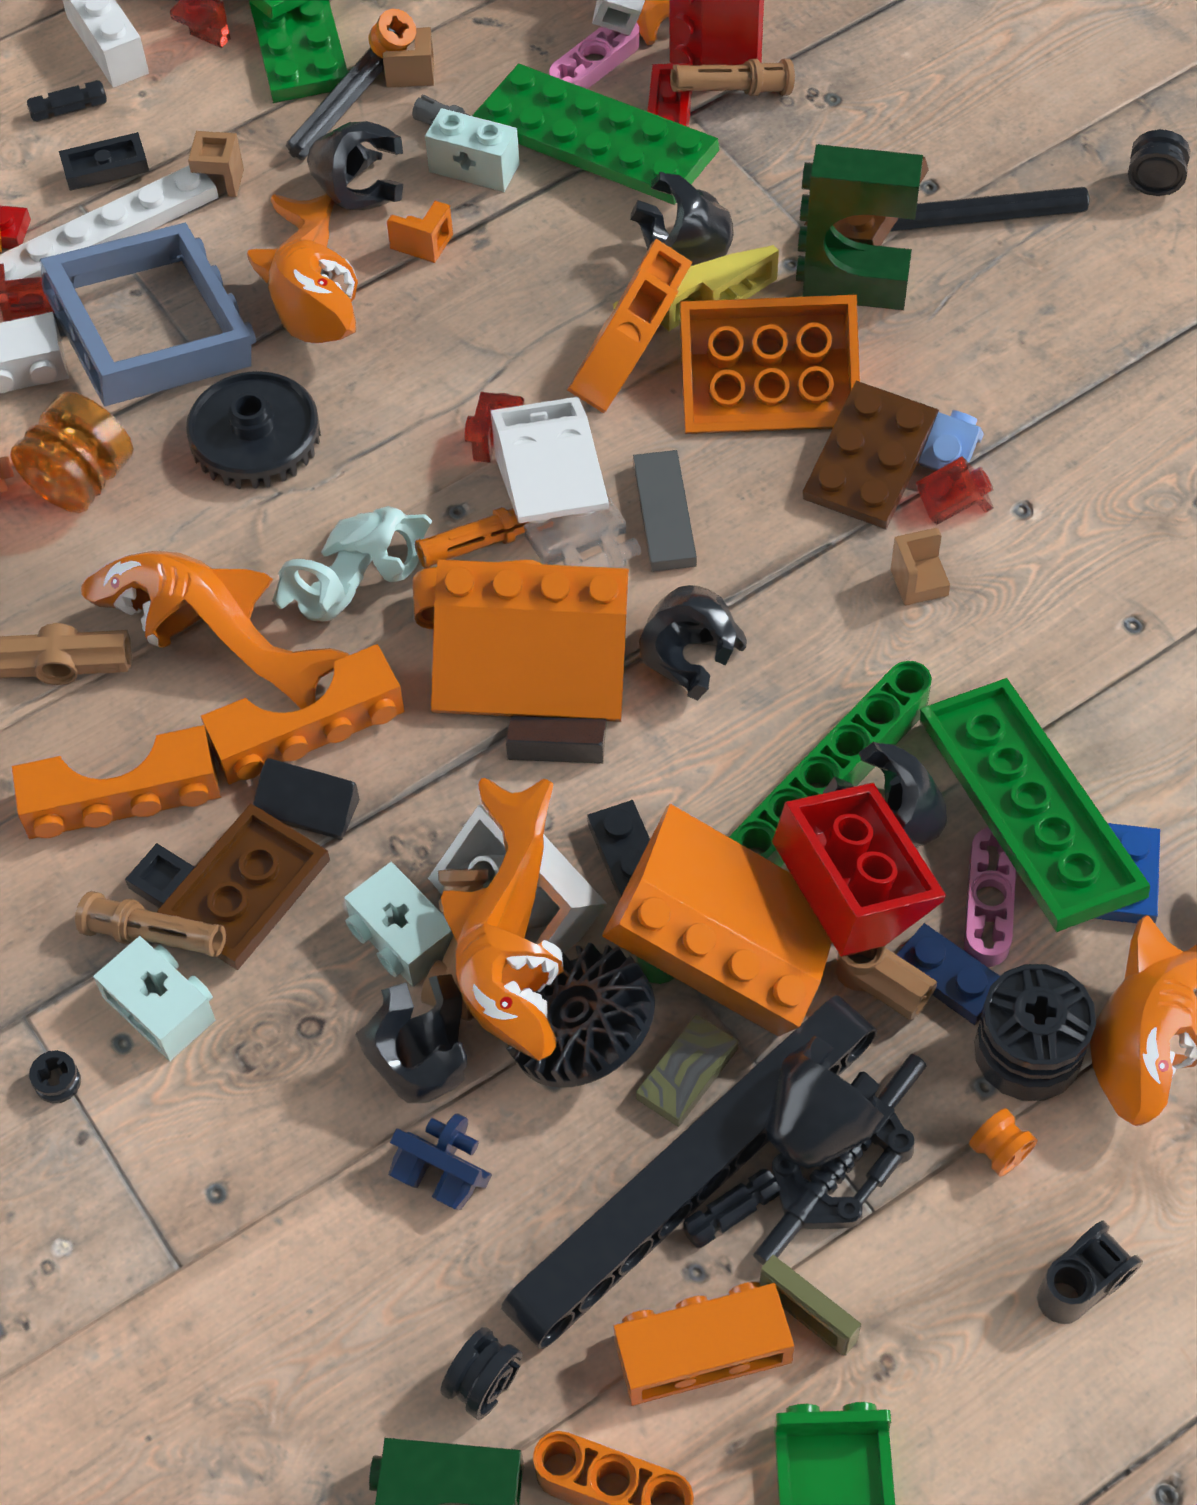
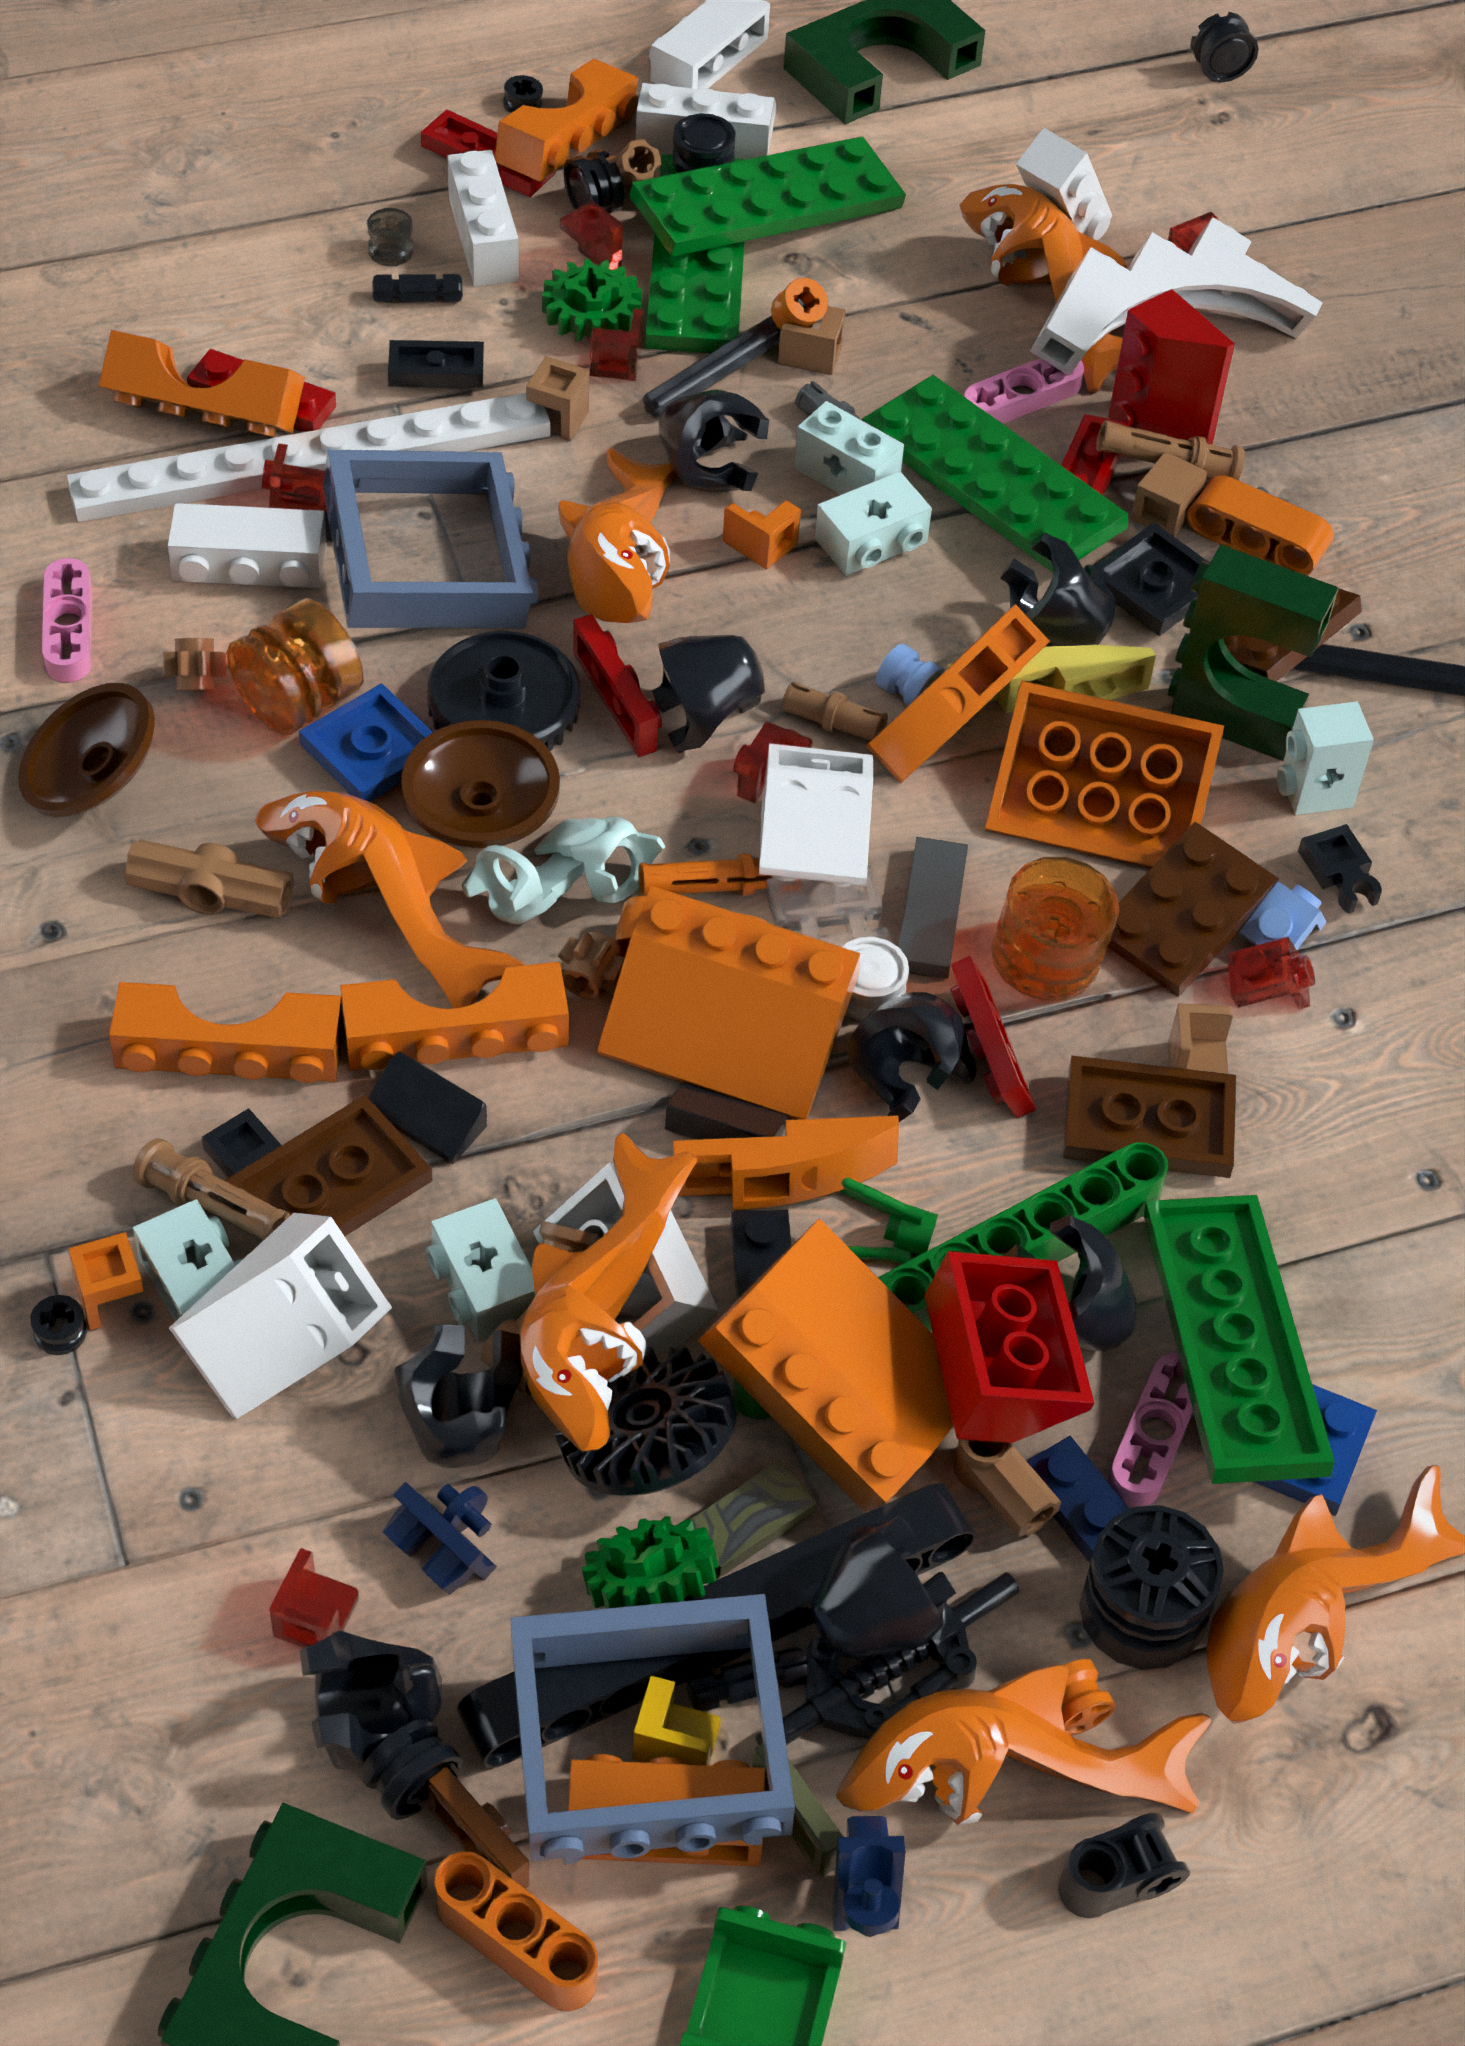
camera: 10 degrees right, 5 degrees down
(29, 63) = (390, 236): none -> clear smoke wheel
(81, 1023) = (104, 1273): none -> orange panel
(157, 500) = (365, 742): none -> blue plate
(216, 74) = (590, 299): none -> green gear
(243, 1013) = (280, 1313): none -> white slope
(252, 111) = (617, 352): none -> clear red panel
(257, 494) = (478, 766): none -> reddish brown dish
(345, 394) = (616, 685): none -> red plate
(351, 1257) = (310, 1604): none -> clear red panel
(404, 638) = (591, 964): none -> medium nougat gear
(425, 370) = (710, 681): none -> black piece
(426, 1321) = (367, 1693): none -> black piece
(510, 201) = (873, 523): none -> light aqua brick
(530, 368) = (833, 711): none -> medium nougat pin
(552, 1406) = (476, 1826): none -> dark orange plate
(581, 321) = (905, 673): none -> light blue wheel
(622, 1139) = (650, 1564): none -> green gear
(633, 758) = (794, 1166): none -> orange slope
(637, 1201) = (637, 1634): none -> sand blue window
(645, 582) = (881, 975): none -> white wheel
(686, 1270) = (672, 1729): none -> yellow panel
(734, 785) = (907, 1226): none -> green plant
(742, 114) = (1168, 493): none -> medium nougat panel
(749, 608) = (990, 1038): none -> red plate
(756, 185) = (1152, 577): none -> black plate
(773, 501) = (1054, 928): none -> clear orange wheel
(822, 118) = (1260, 524): none -> orange beam
(890, 1350) = (868, 1877): none -> dark blue hips
(913, 625) = (1169, 1107): none -> reddish brown plate
(933, 1206) = (973, 1731): none -> orange piece
(942, 299) = (1325, 758): none -> light aqua brick
(979, 380) = (1340, 860): none -> black plate

